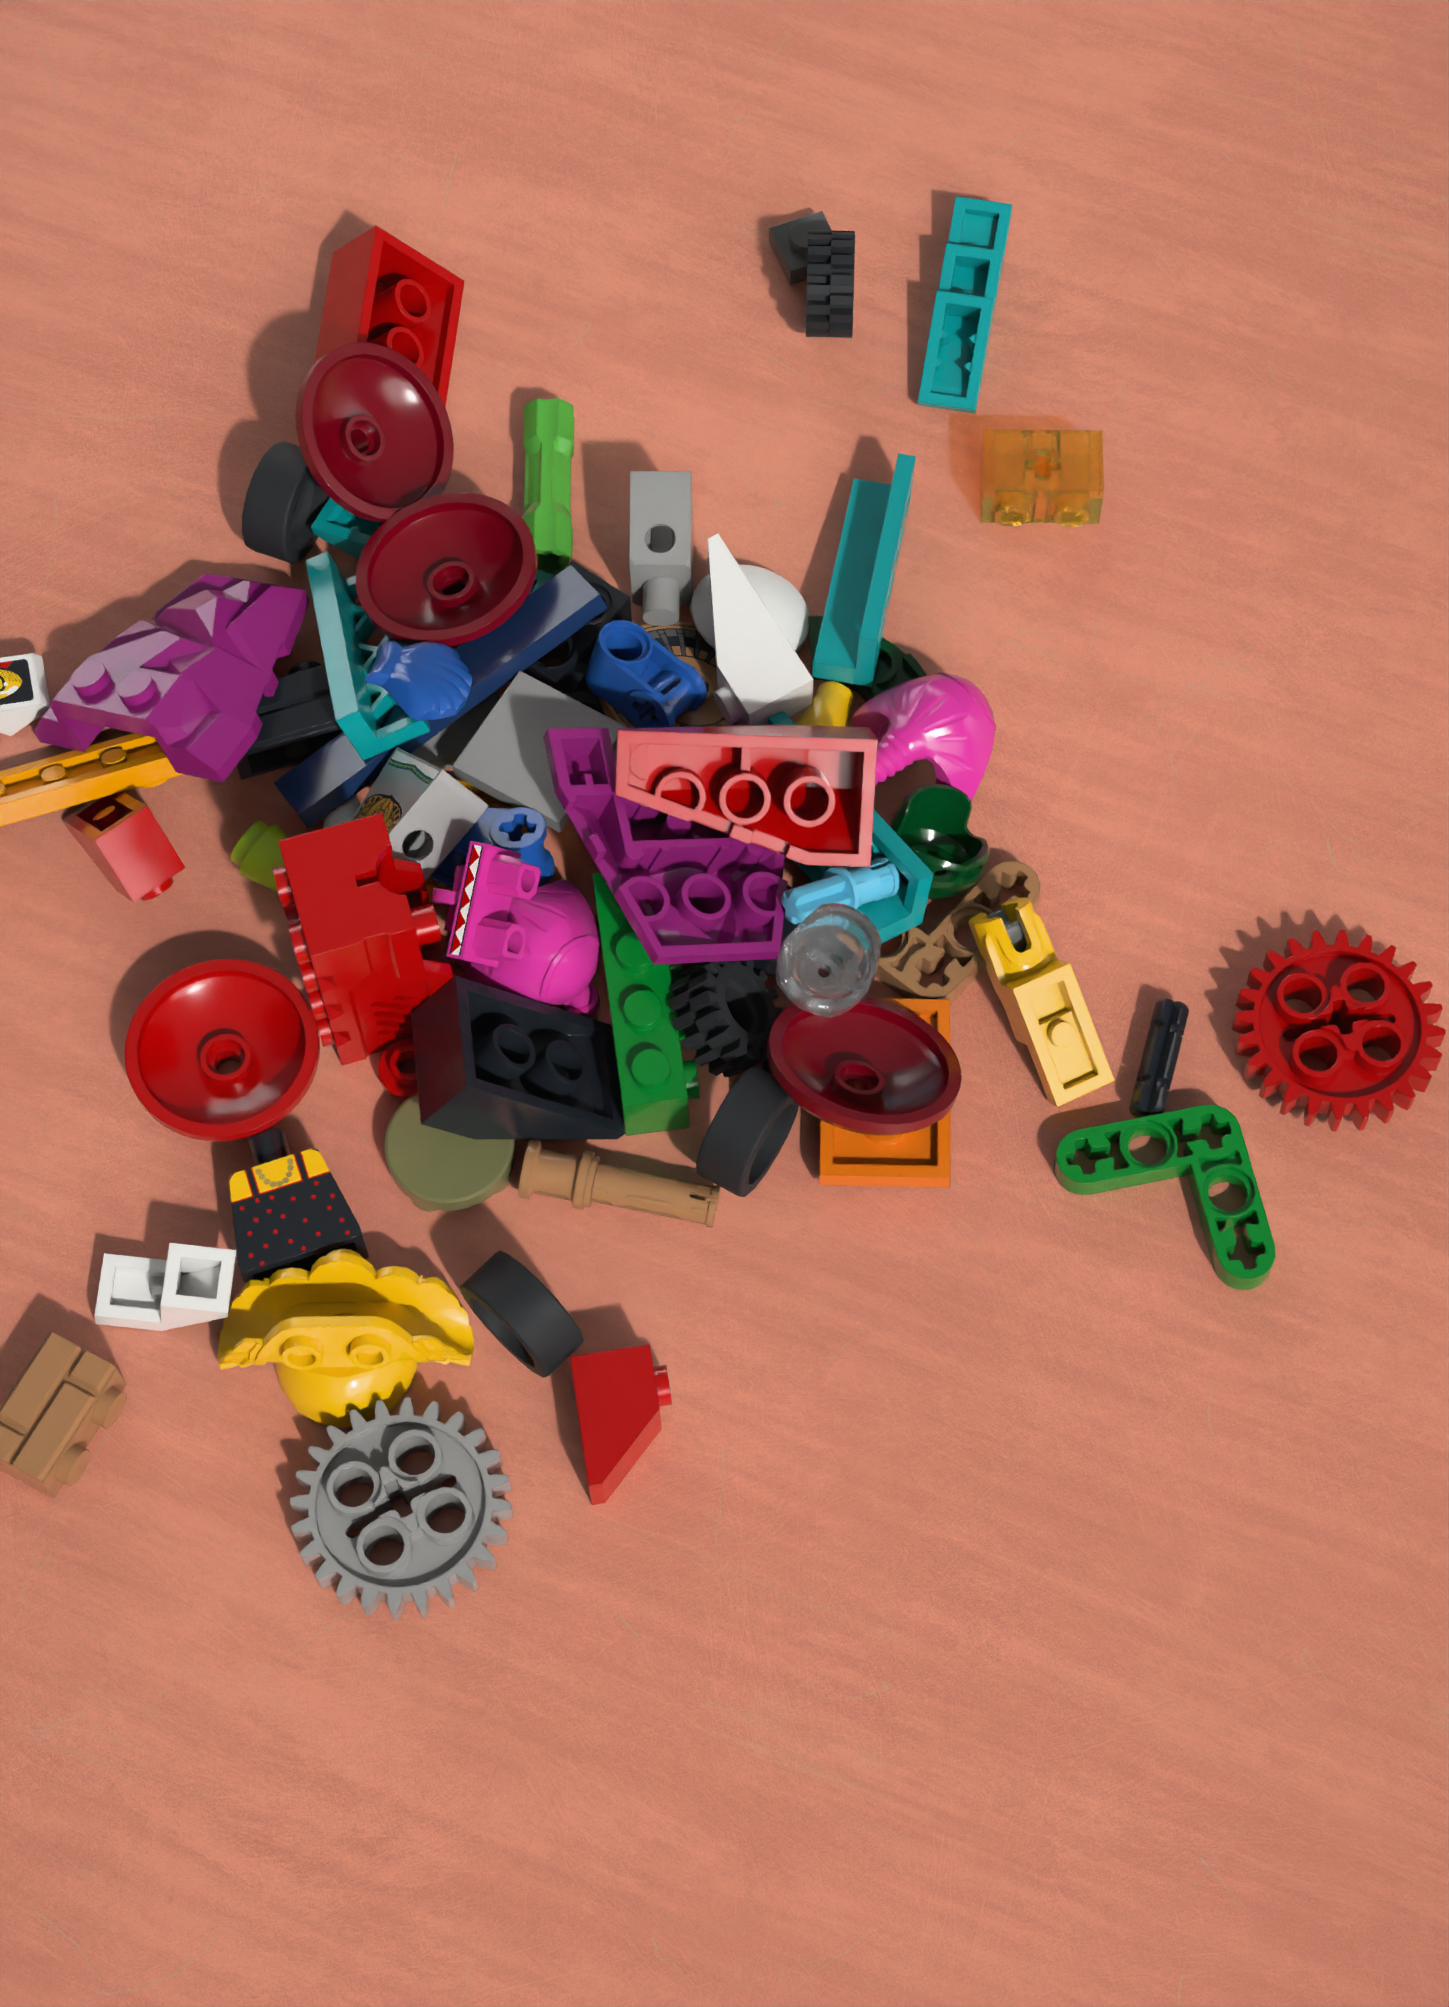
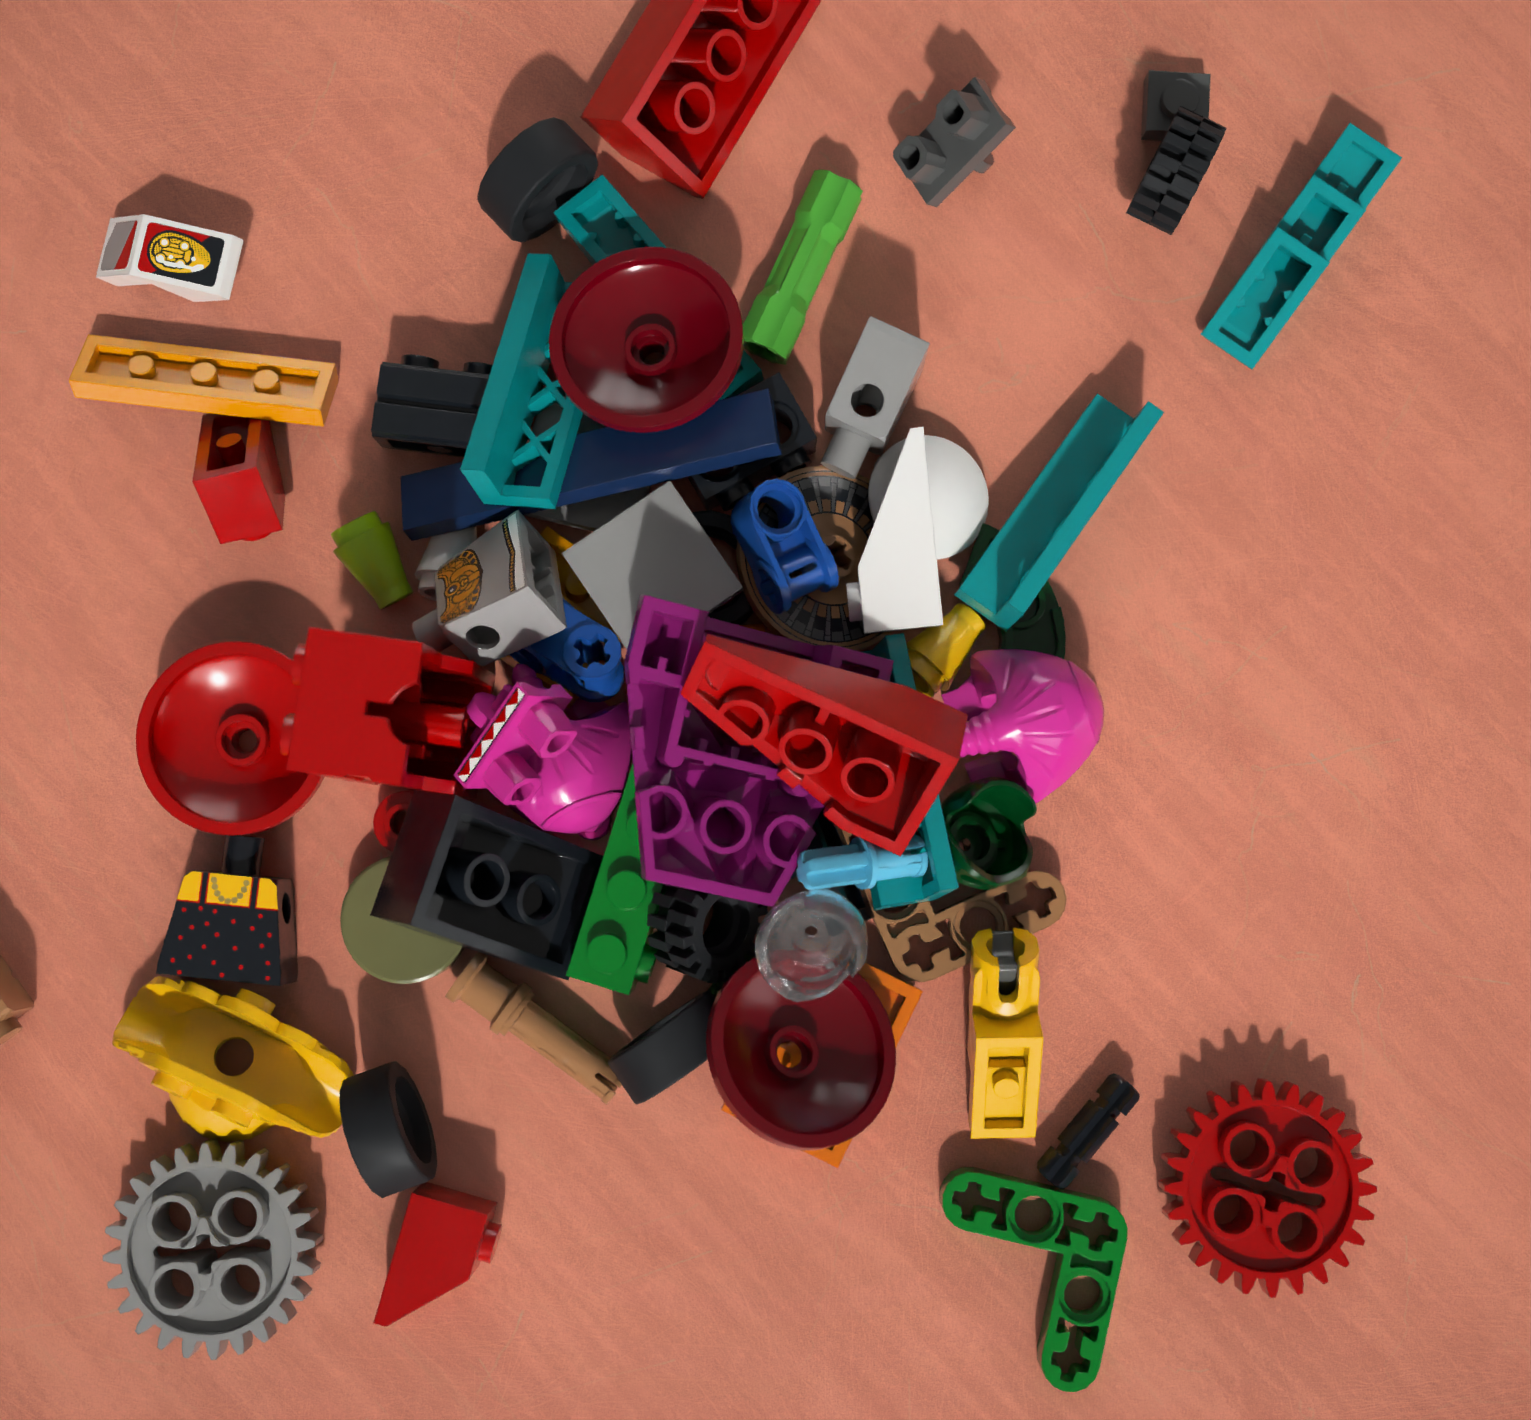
camera: 25 degrees right, 20 degrees up
(167, 1293) = (97, 940): white slope -> none
(185, 675) = (365, 332): magenta wedge -> none
(391, 417) = (671, 161): dark red dish -> none
(422, 678) = (564, 458): blue animal -> none
(633, 337) = (955, 142): none -> dark grey hips
(1041, 477) = (1311, 475): clear yellow brick -> none

